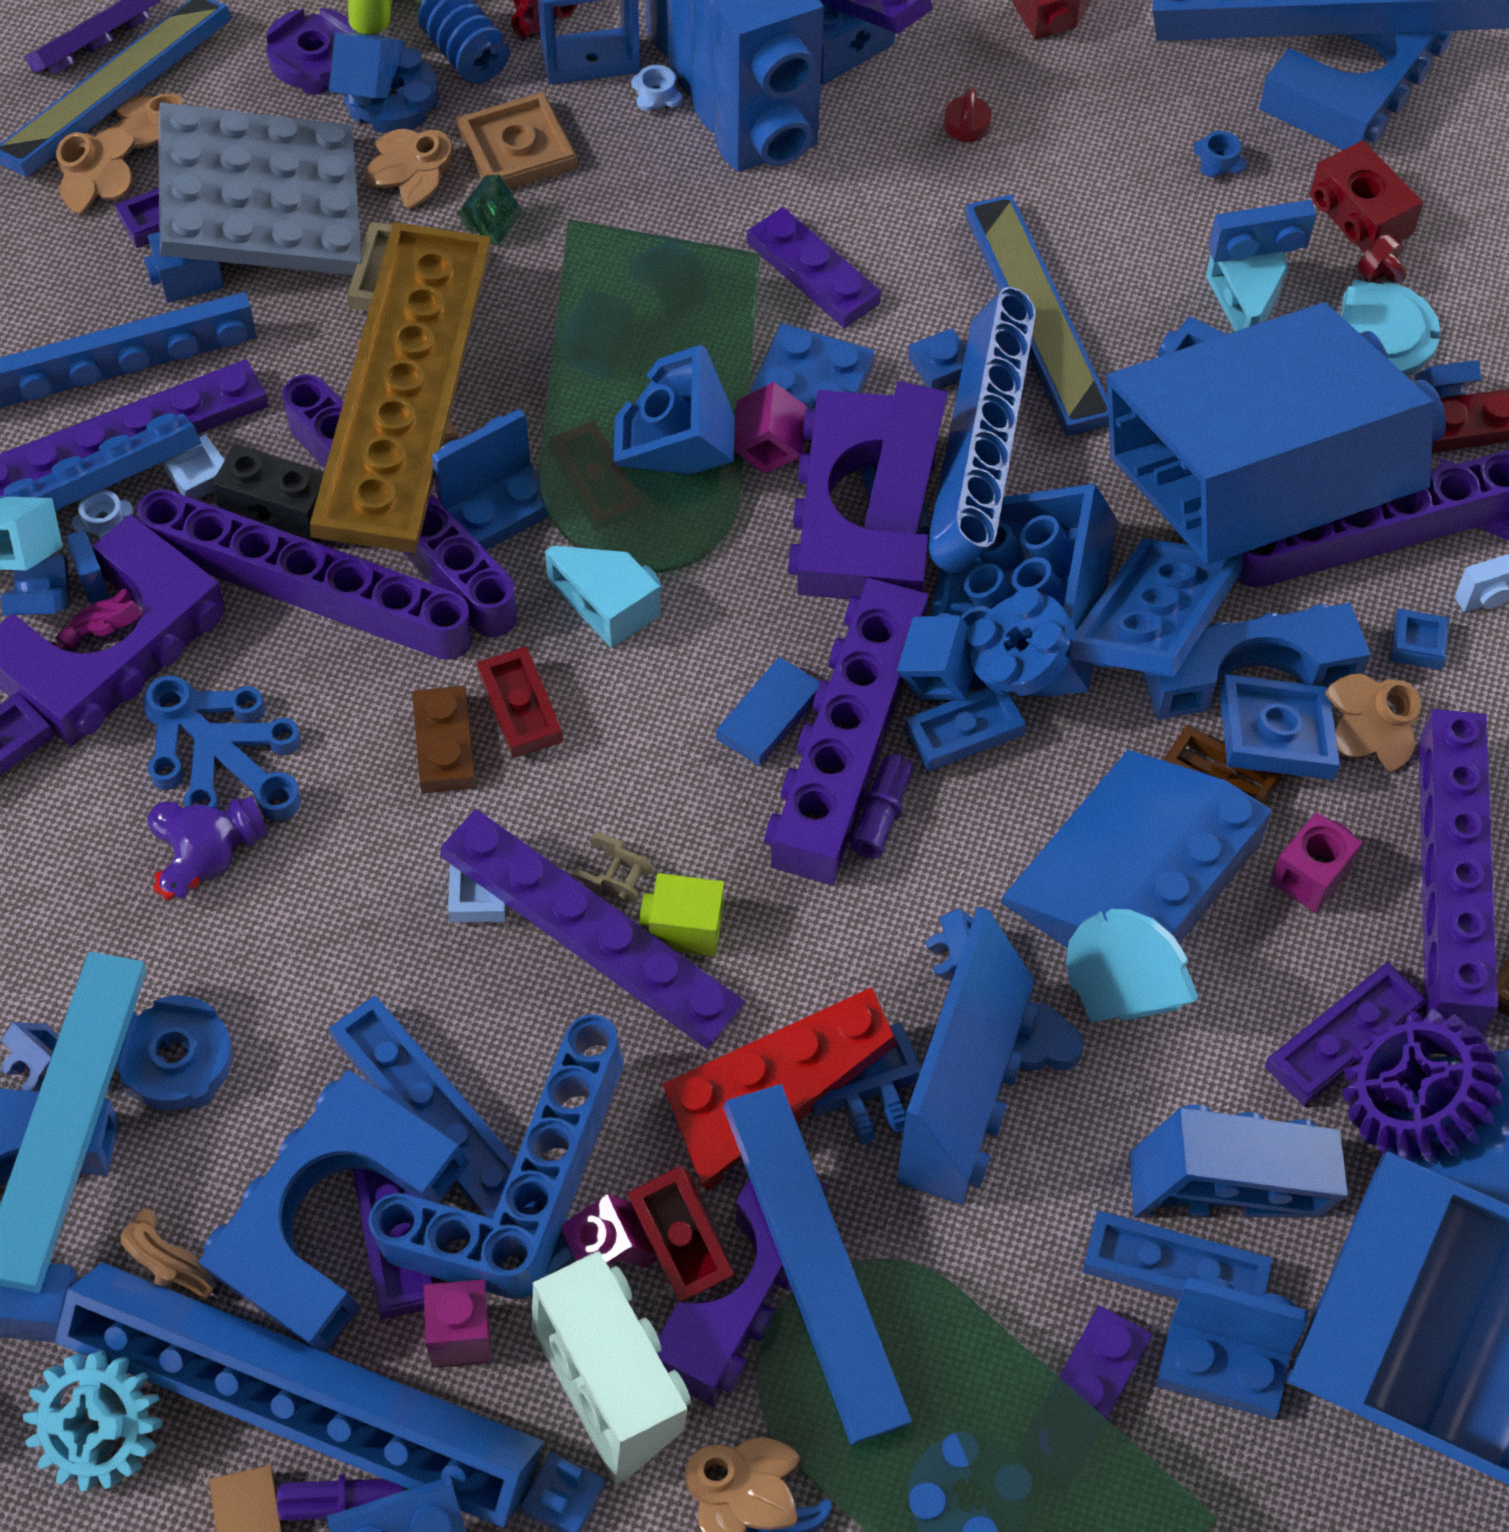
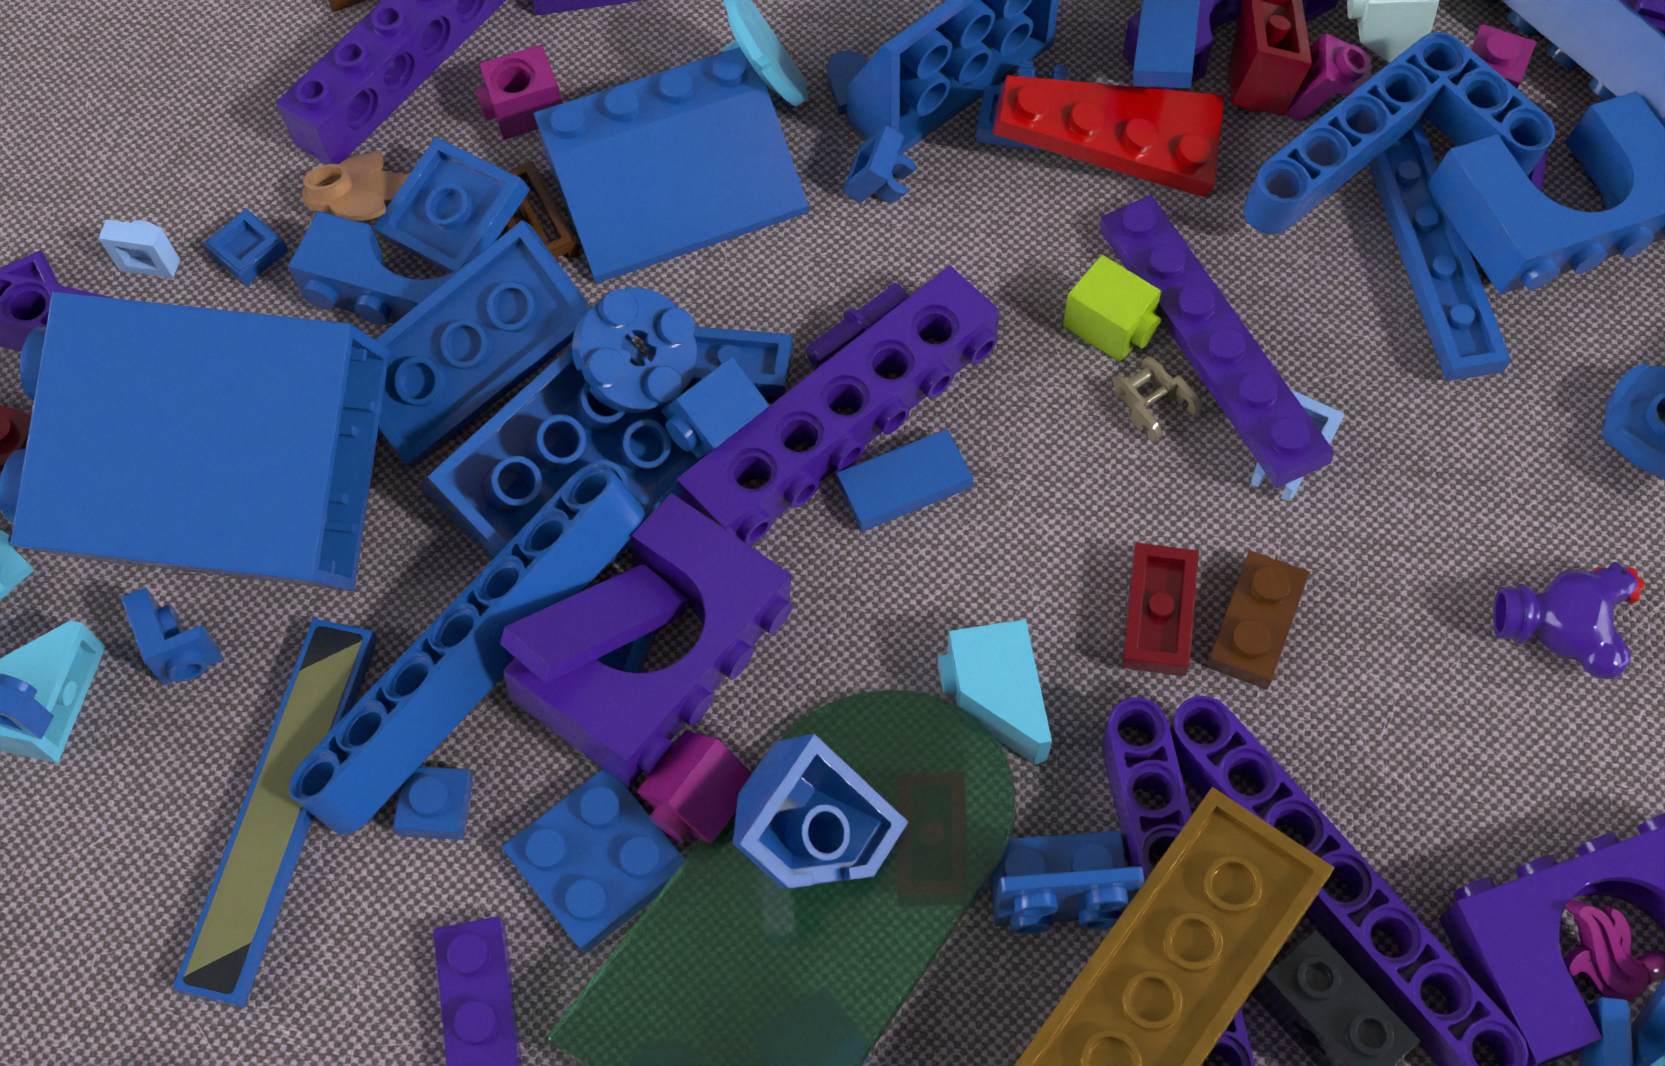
camera: 145 degrees left, 5 degrees up
(219, 743) = (1513, 734): blue plant -> none

